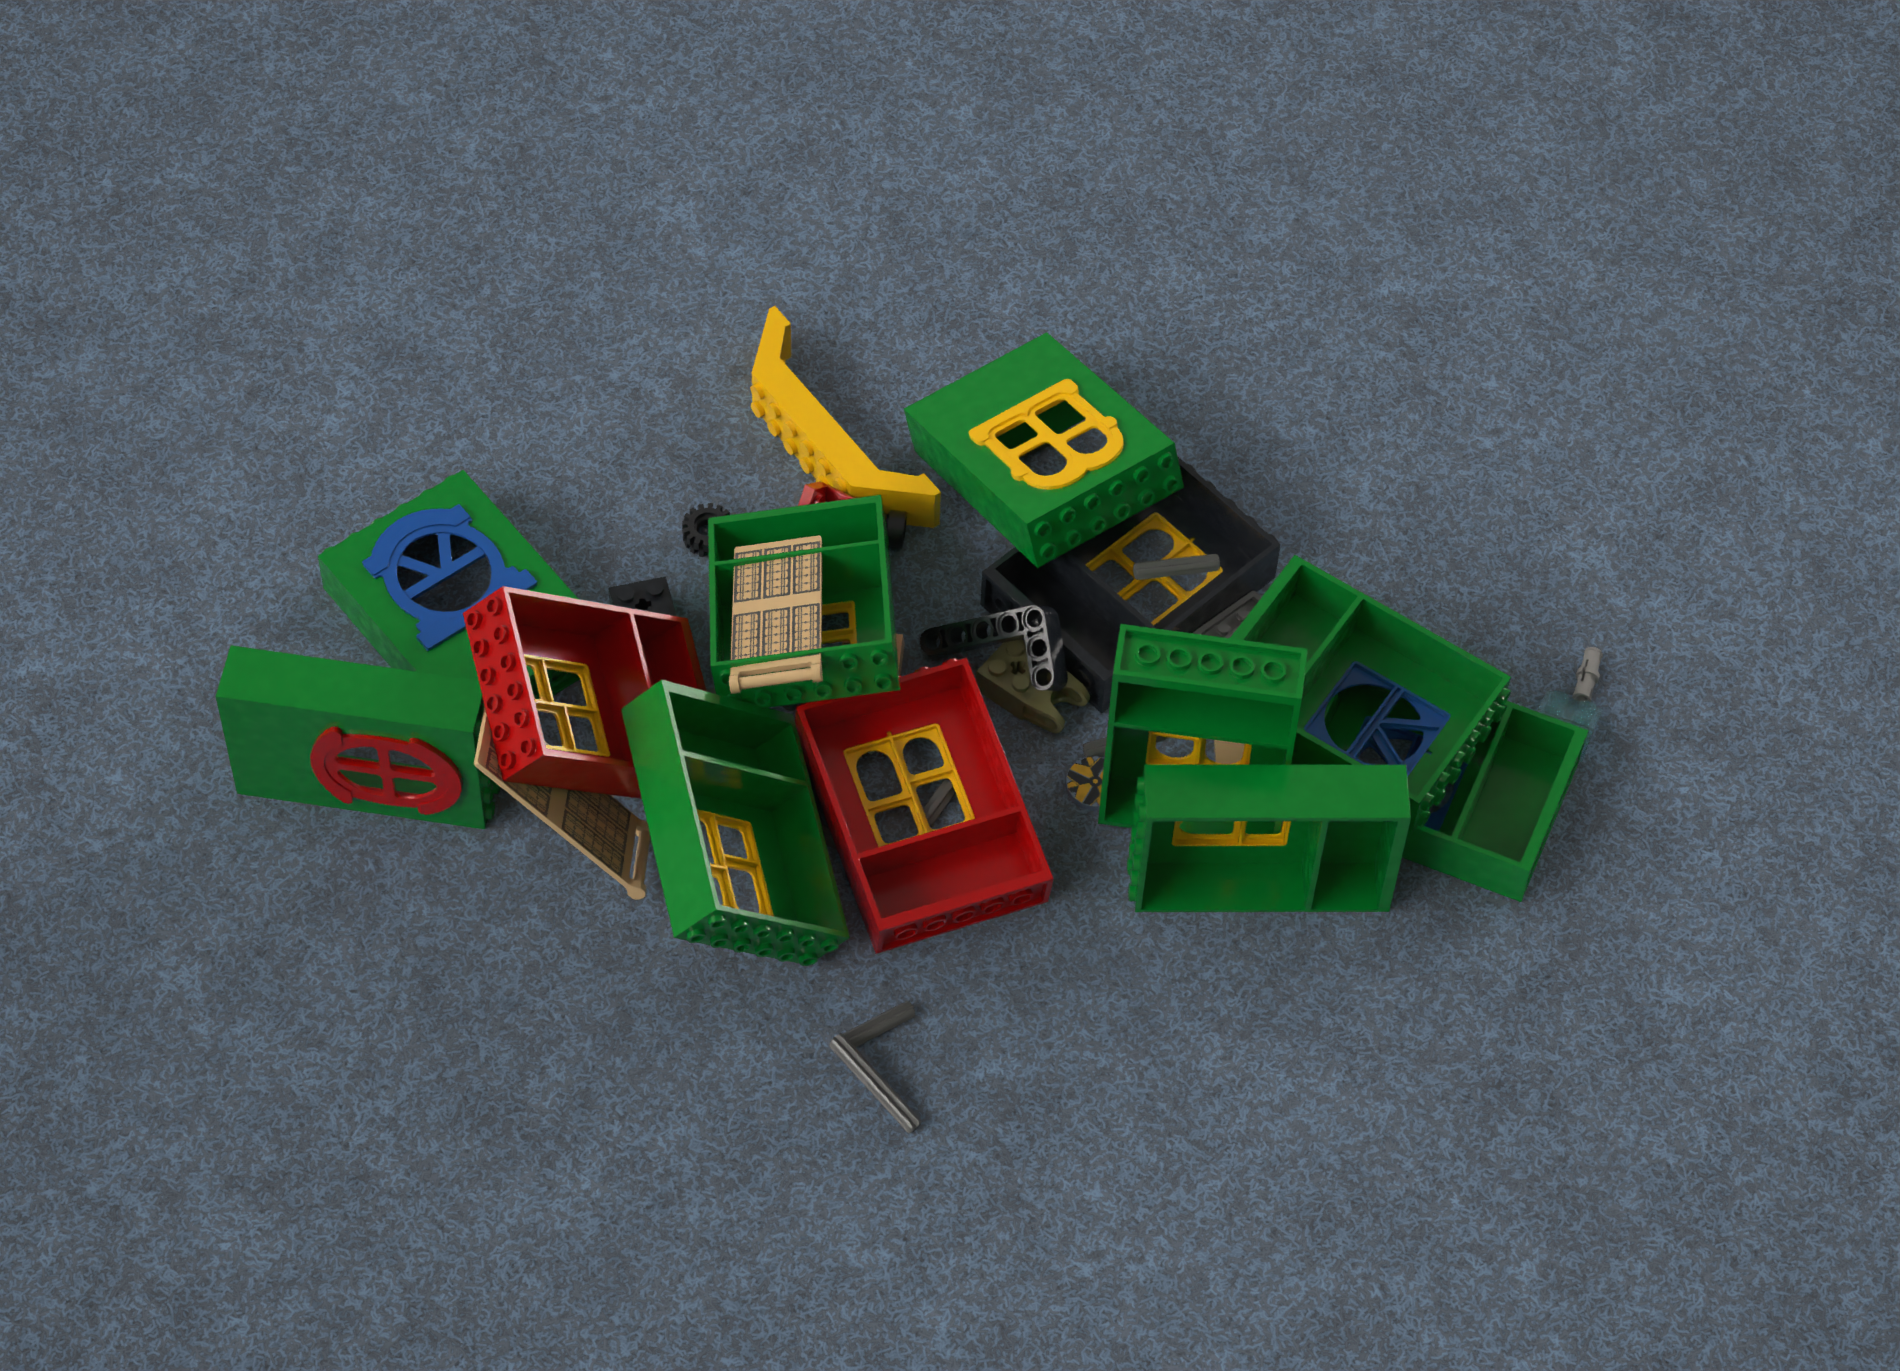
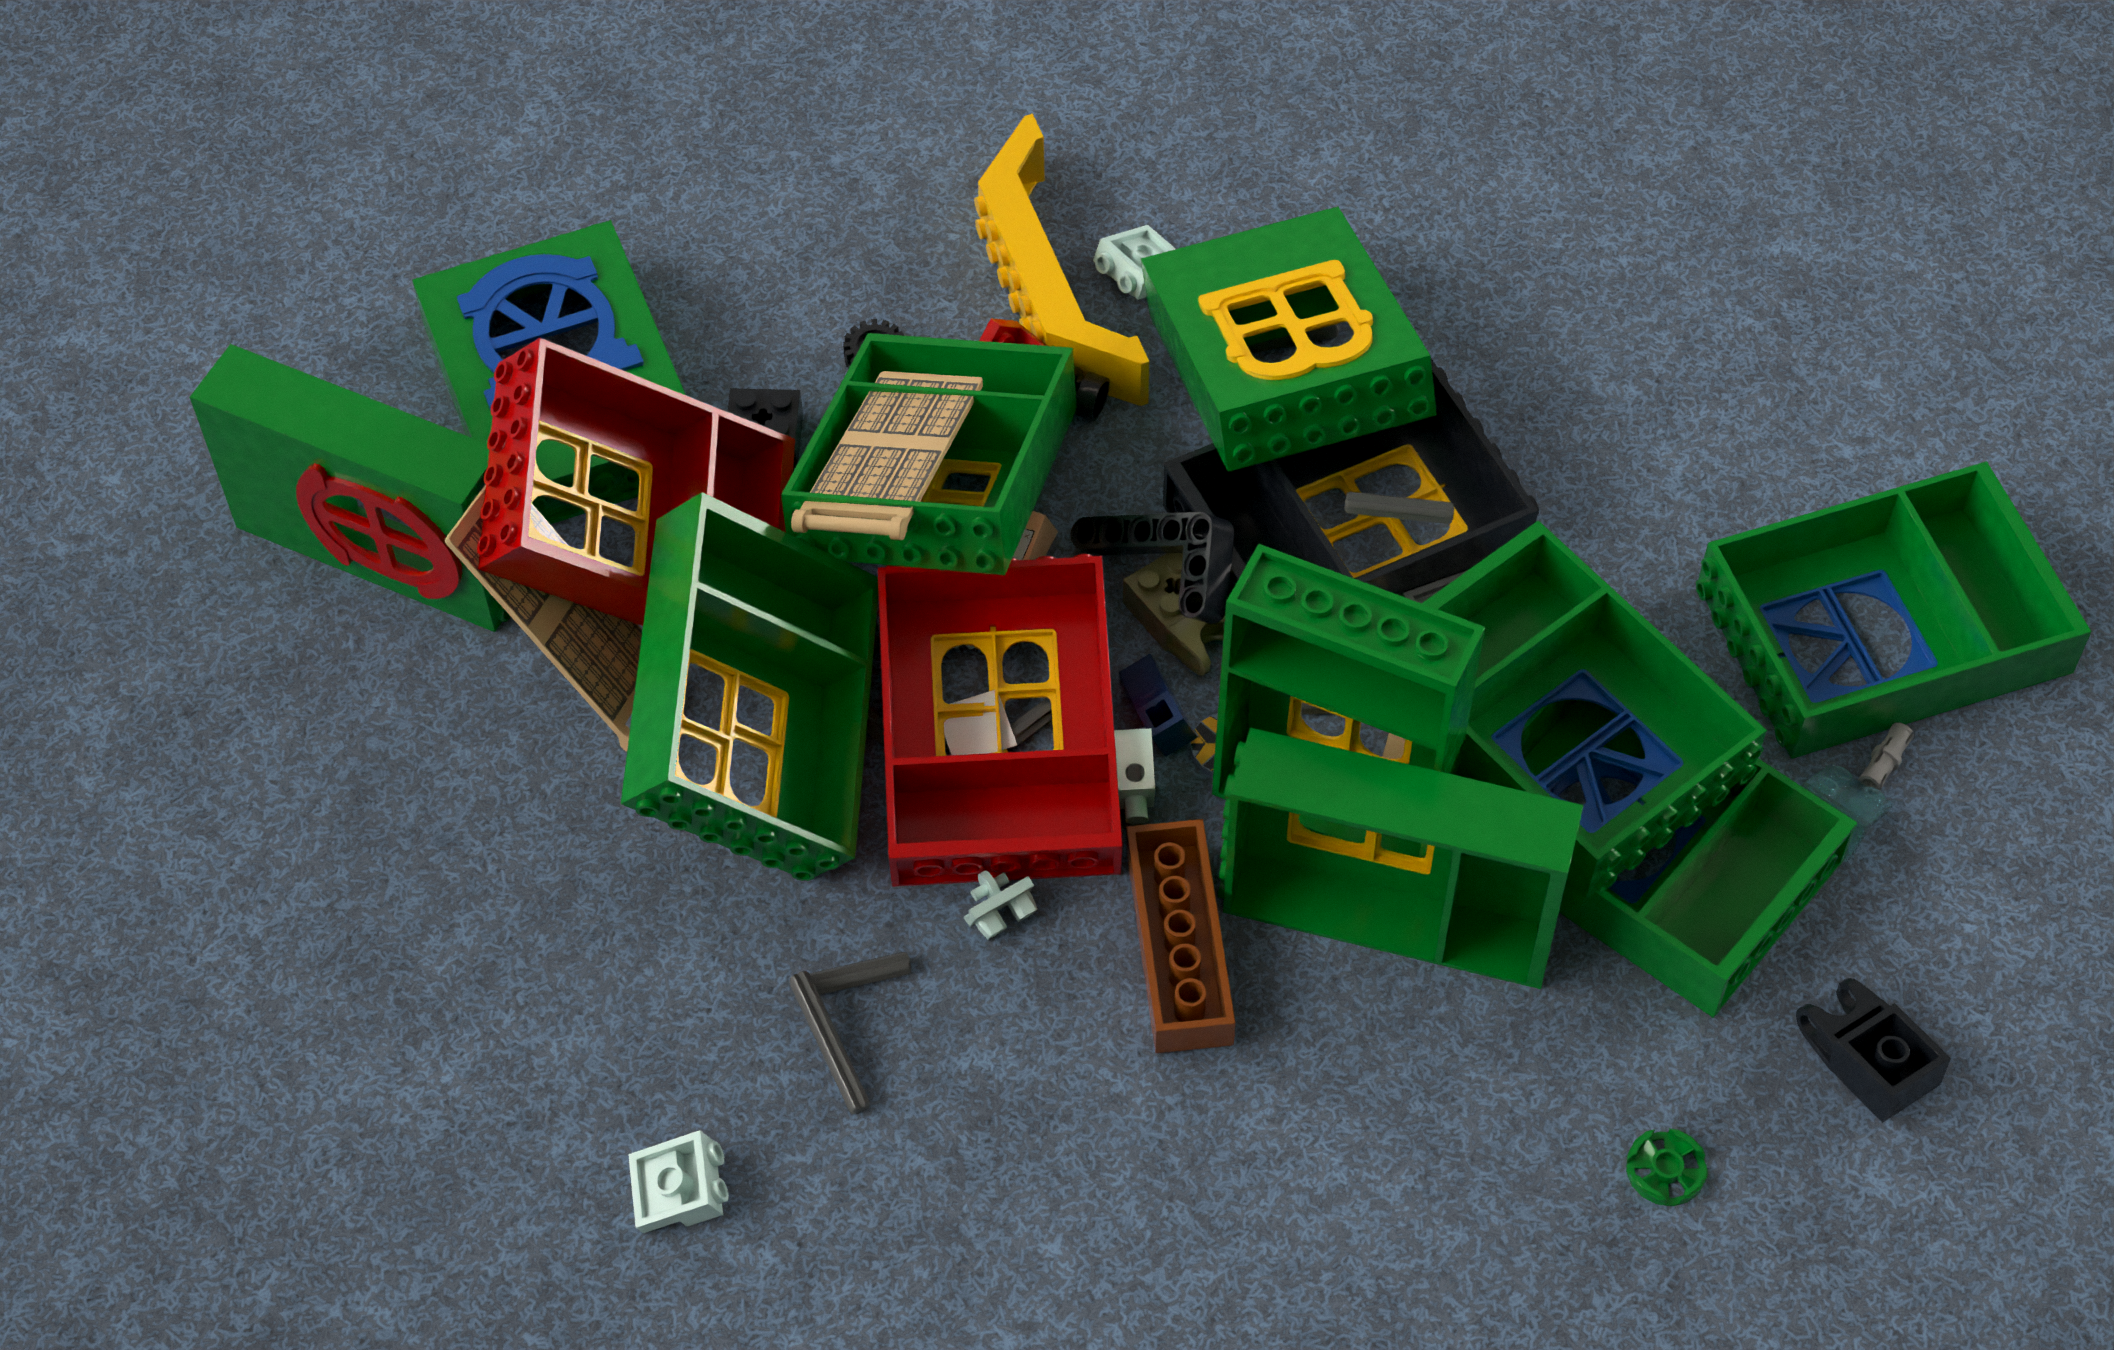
camera: 20 degrees right, 0 degrees up
(798, 1216) = (677, 1182): none -> light aqua plate
(885, 408) = (1121, 255): none -> light aqua plate
(902, 820) = (978, 733): none -> white sticker
(959, 957) = (986, 913): none -> light aqua hips
(1034, 764) = (1157, 705): none -> dark blue slope
(1042, 818) = (1135, 773): none -> light aqua torso
(1113, 937) = (1180, 936): none -> dark orange brick
(1521, 1019) = (1666, 1166): none -> green piece
(1594, 517) = (1936, 551): none -> green panel
(1644, 896) = (1874, 1049): none -> black brick

